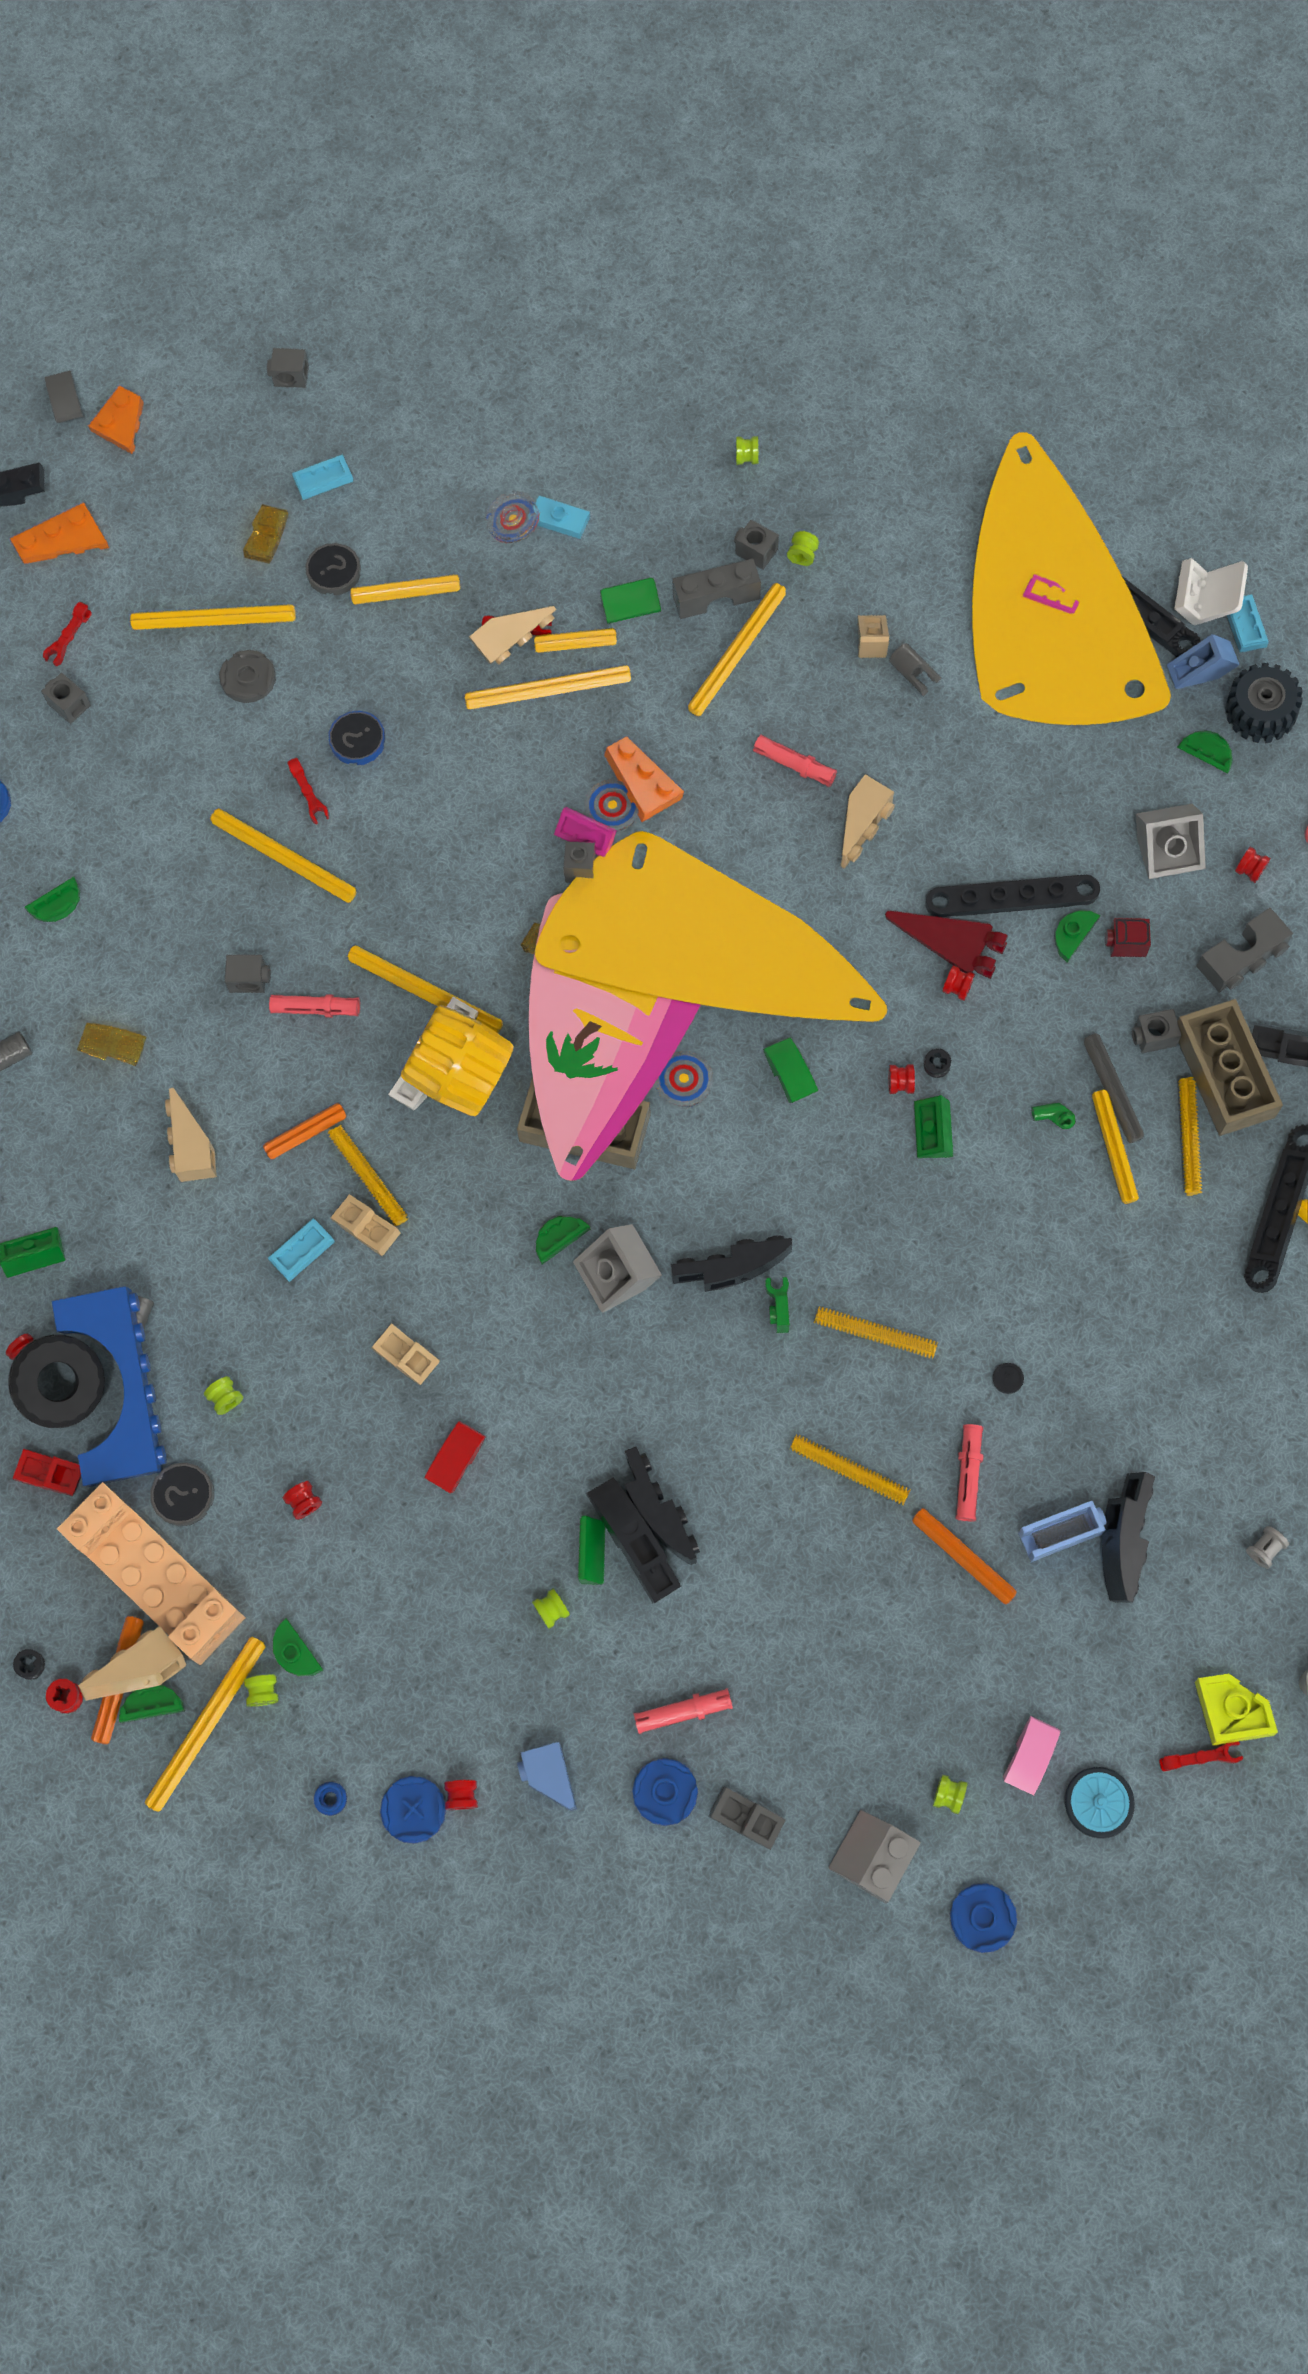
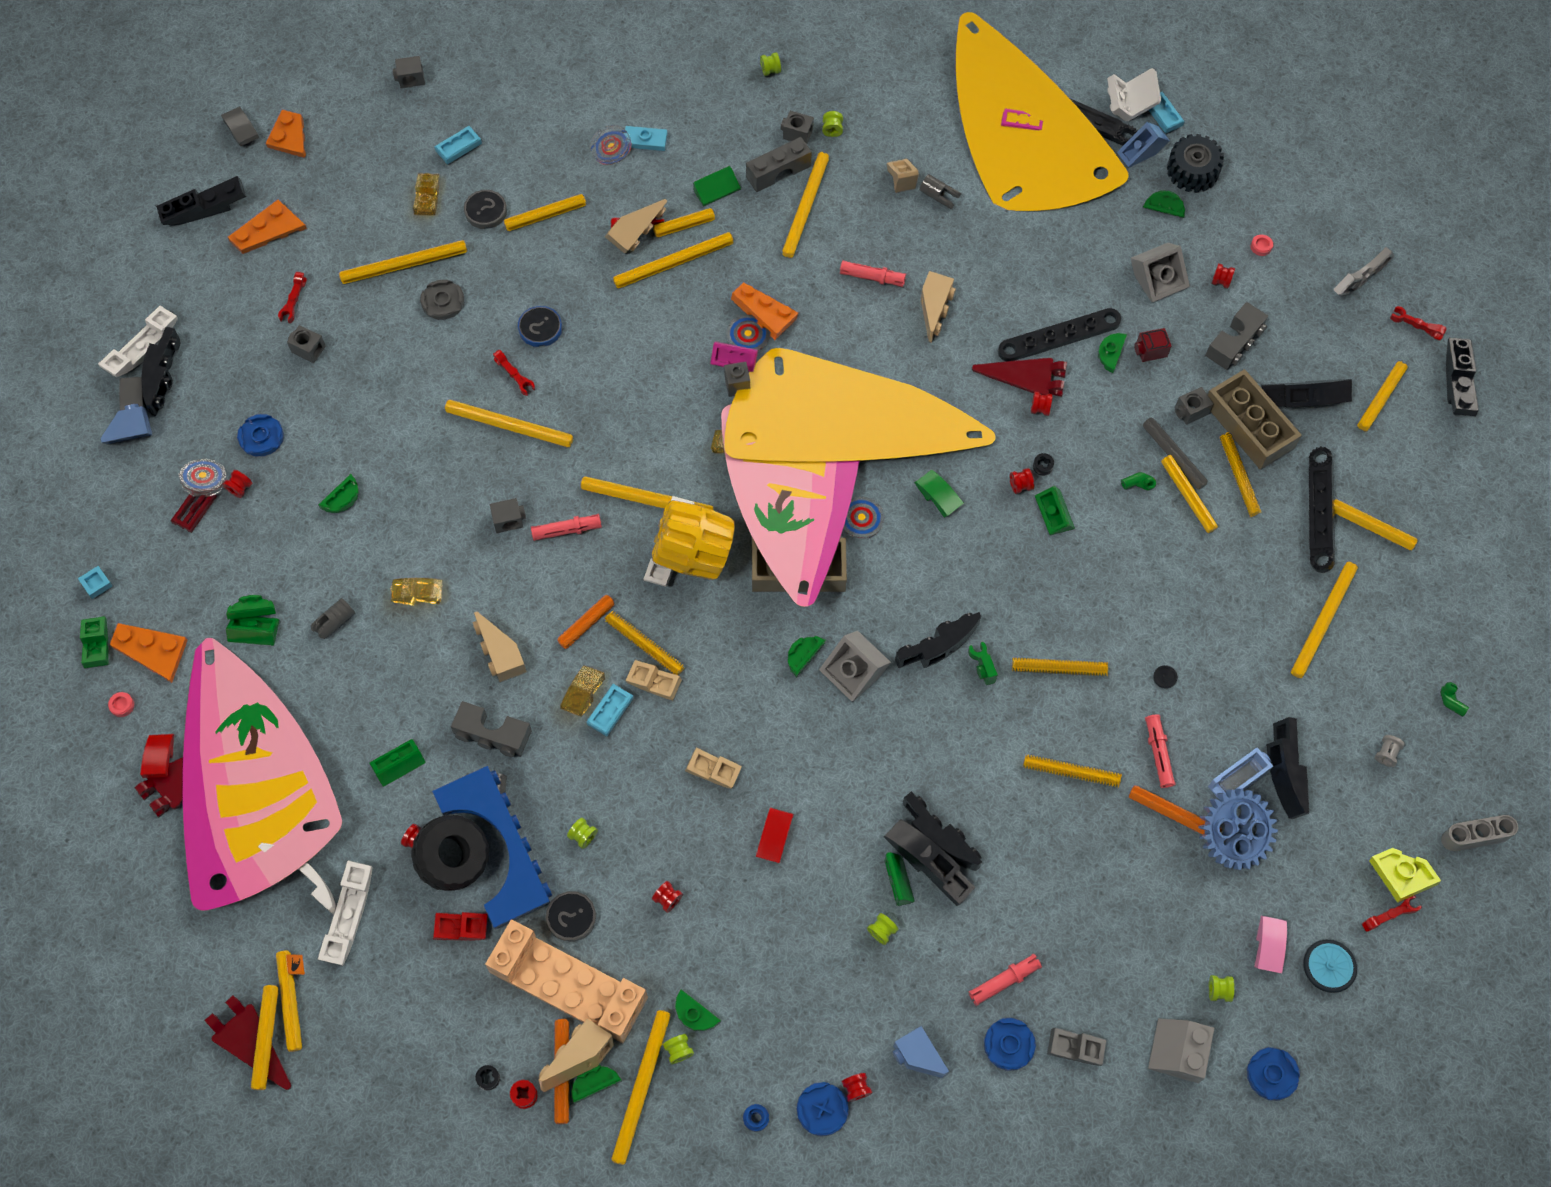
camera: 20 degrees left, 5 degrees down
(171, 1255) = (509, 738): none -> dark grey arch
(270, 1220) = (581, 691): none -> clear yellow slope
(1047, 1624) = (1251, 845): none -> medium blue gear
(1239, 1354) = (1324, 620): none -> yellow axle

